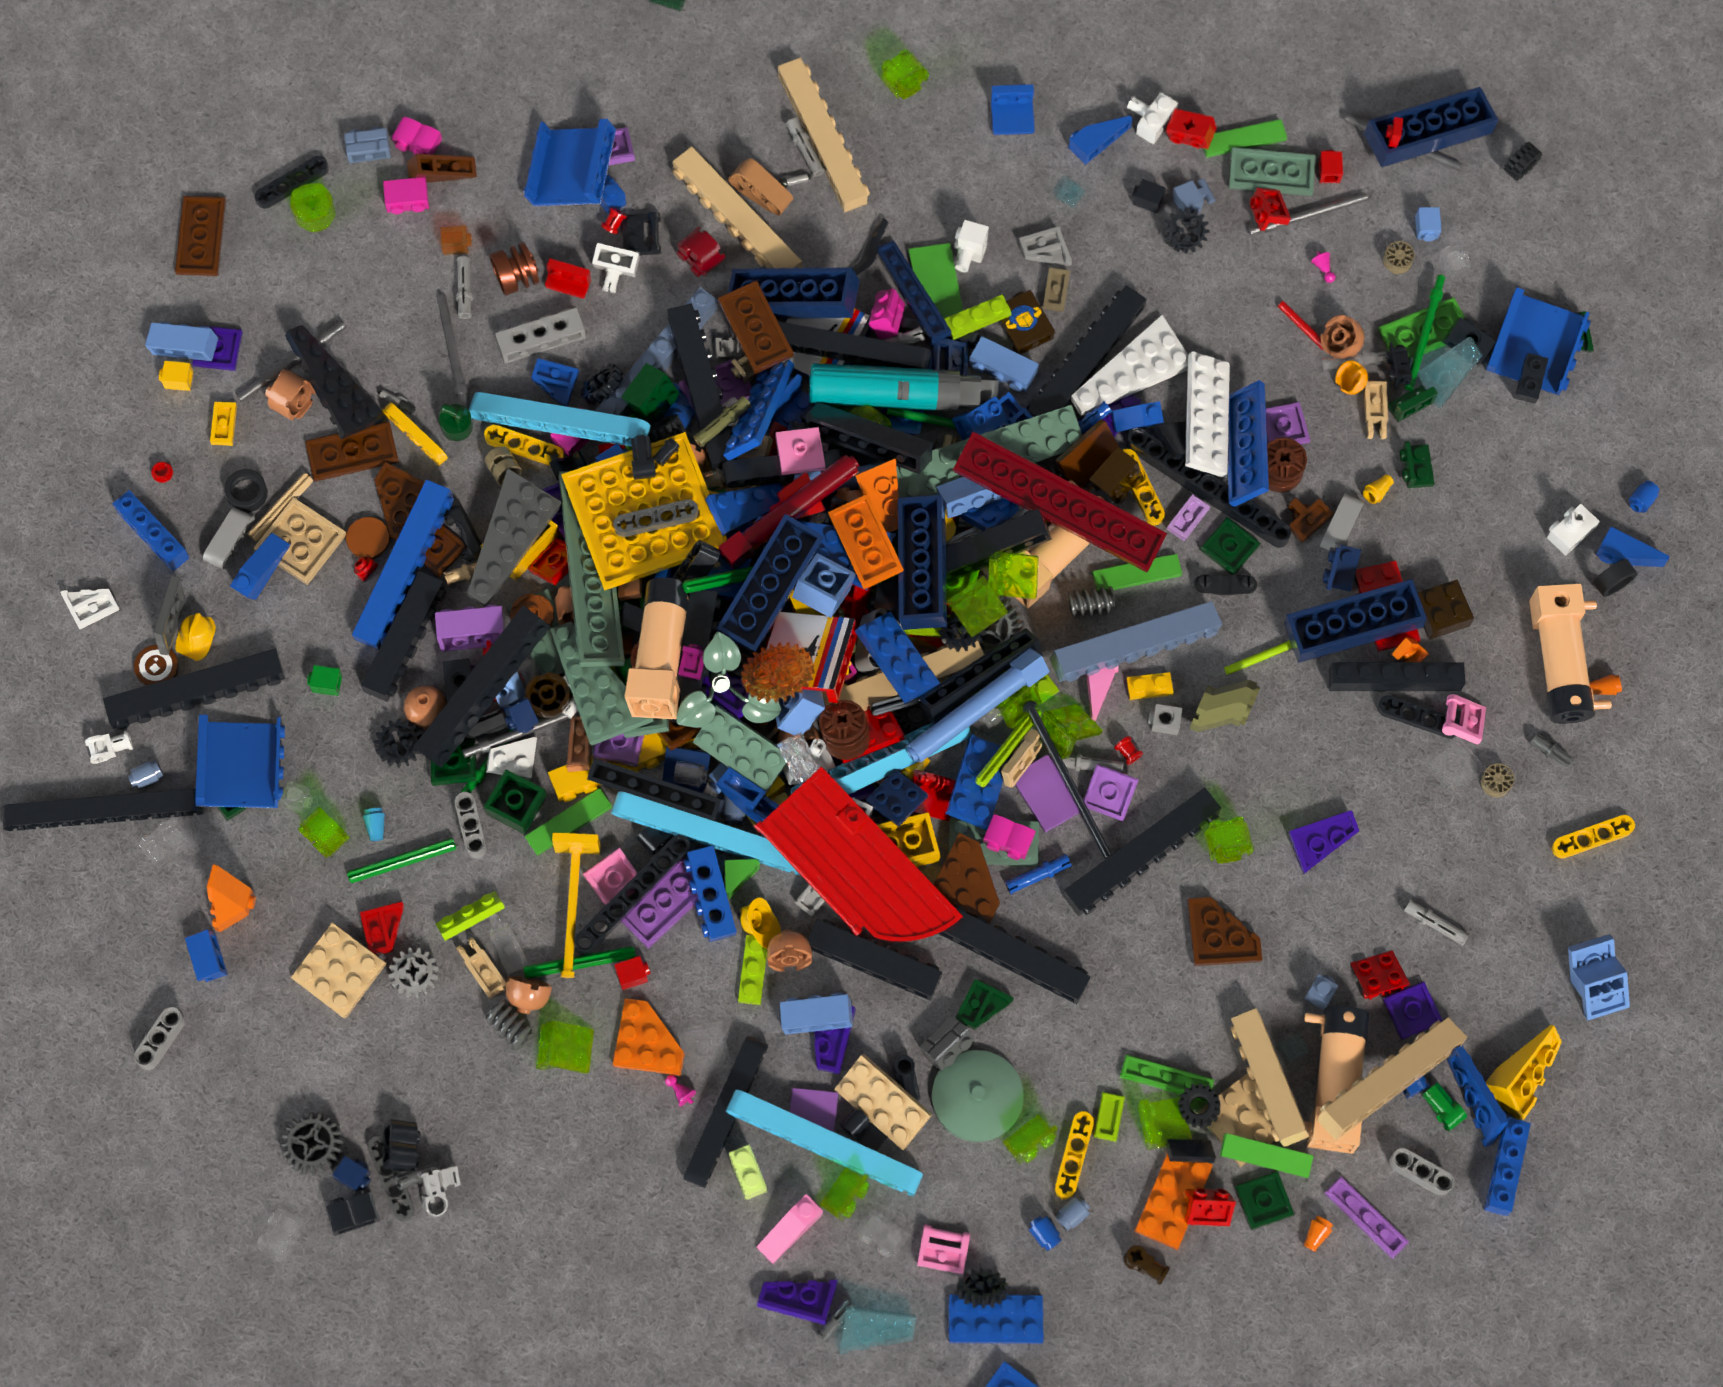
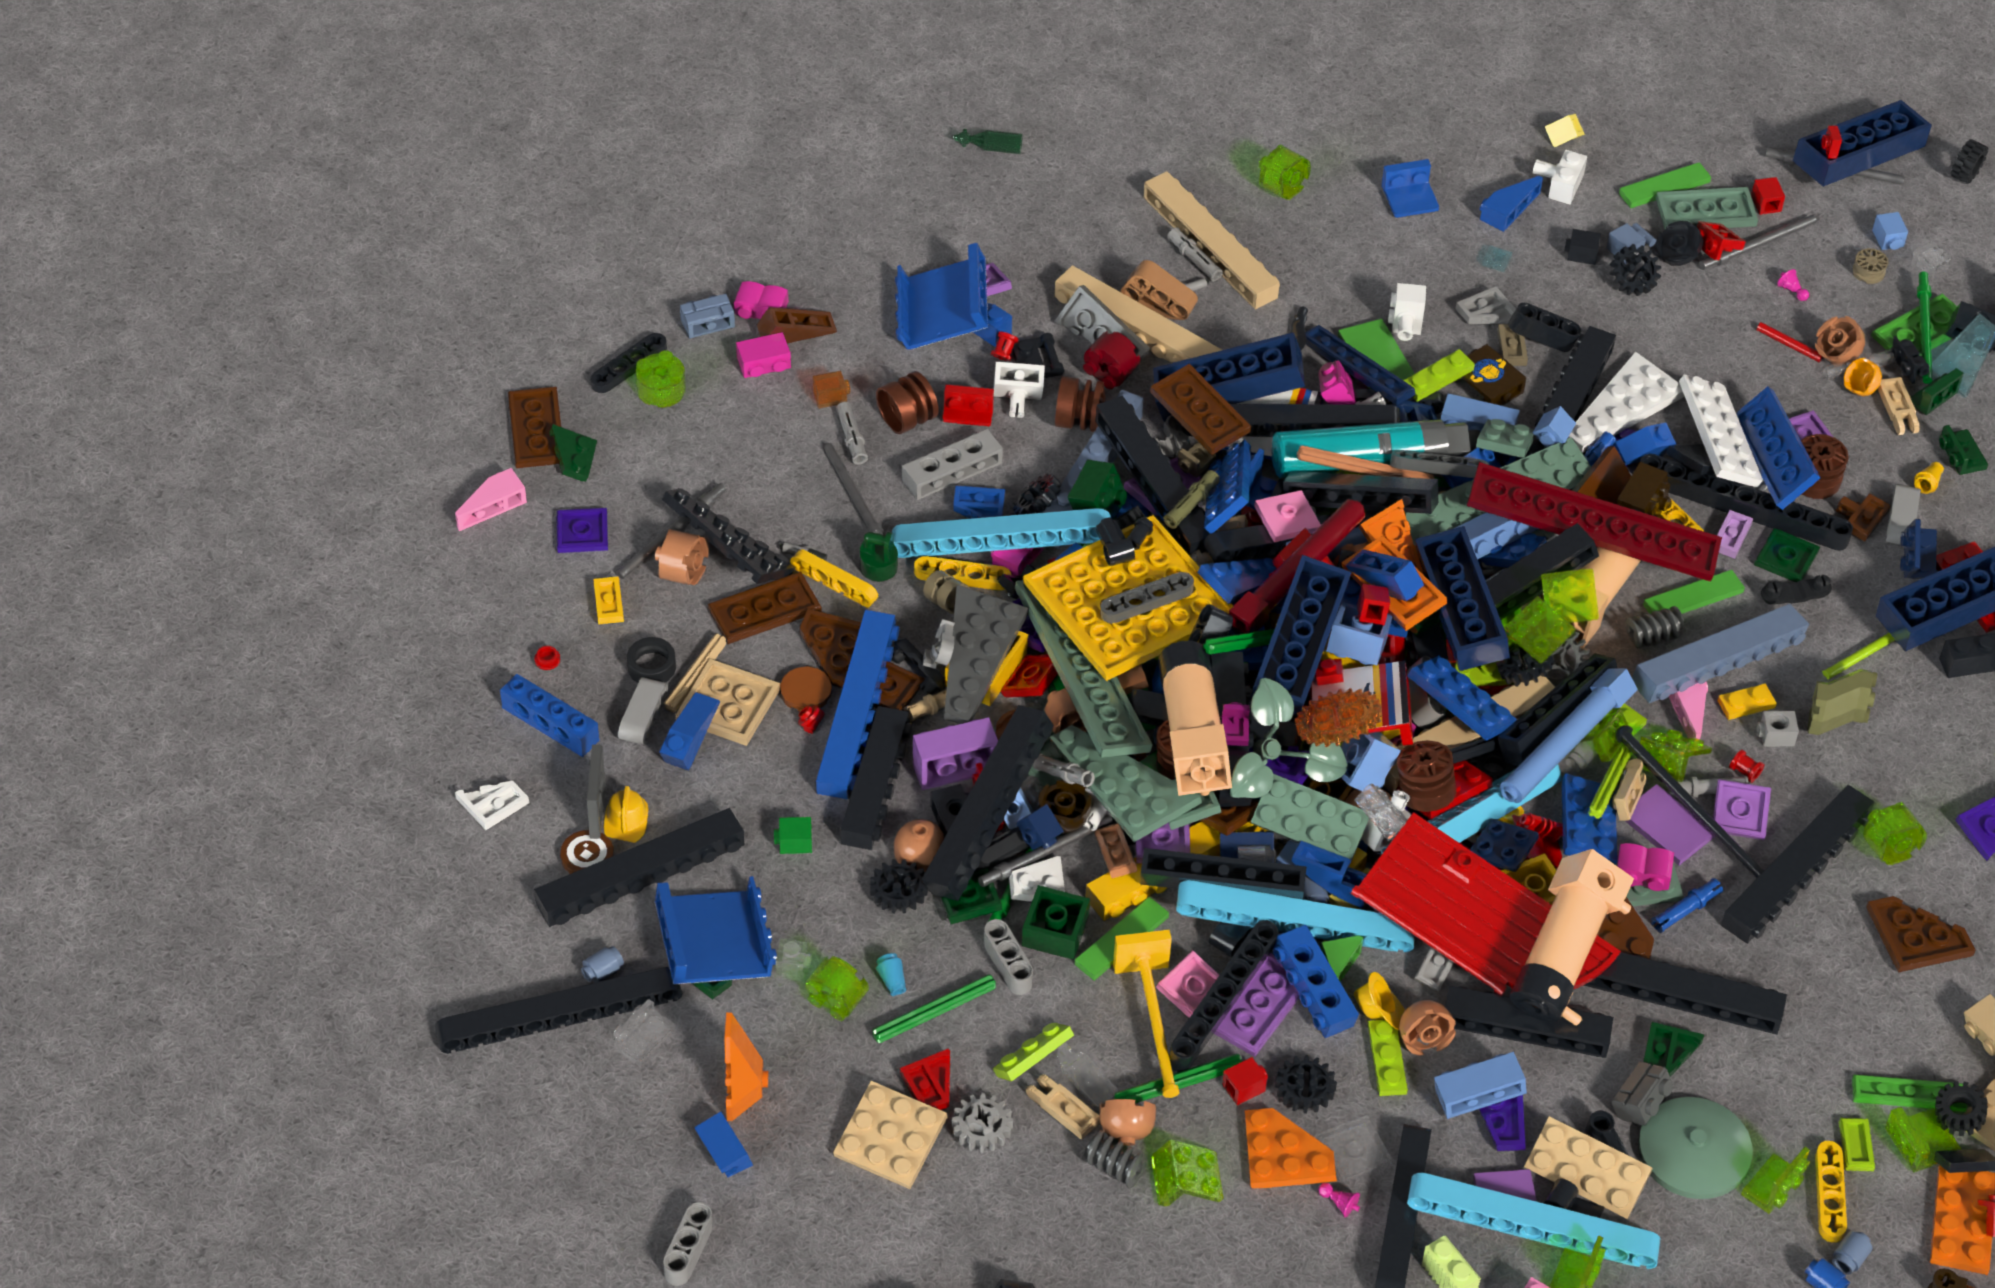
camera: 10 degrees left, 20 degrees down
(107, 746) = (548, 942): white connector -> none
(147, 305) = (492, 498): none -> bright pink slope
(176, 375) = (542, 560): yellow brick -> none
(181, 341) = (541, 525): medium blue brick -> none
(225, 269) = (574, 452): none -> dark green wing
(478, 530) = (943, 649): none -> light grey piece
(555, 669) = (1064, 770): none -> light grey pin
(658, 294) = (1078, 403): none -> copper wheel
(691, 977) = (1317, 1075): none -> black gear
(700, 211) = (1091, 318): none -> dark grey wing
(791, 616) = (1329, 672): none -> red plate
(838, 565) = (1373, 604): none -> red brick
(857, 536) = (1387, 571): none -> blue slope
(881, 411) = (1355, 464): none -> nougat axle
(917, 901) = (1585, 891): none -> light nougat piece
(922, 410) = (1435, 463): none -> dark grey beam
(1015, 395) = (1505, 438): none -> sand green plate
(1058, 393) = (1554, 427): none -> medium blue brick
(1077, 279) = (1544, 327): none -> black beam
(1170, 65) = (1564, 130): none -> light yellow panel
(1191, 129) = (1608, 180): red brick -> none
(1234, 207) = (1679, 243): none -> black tile

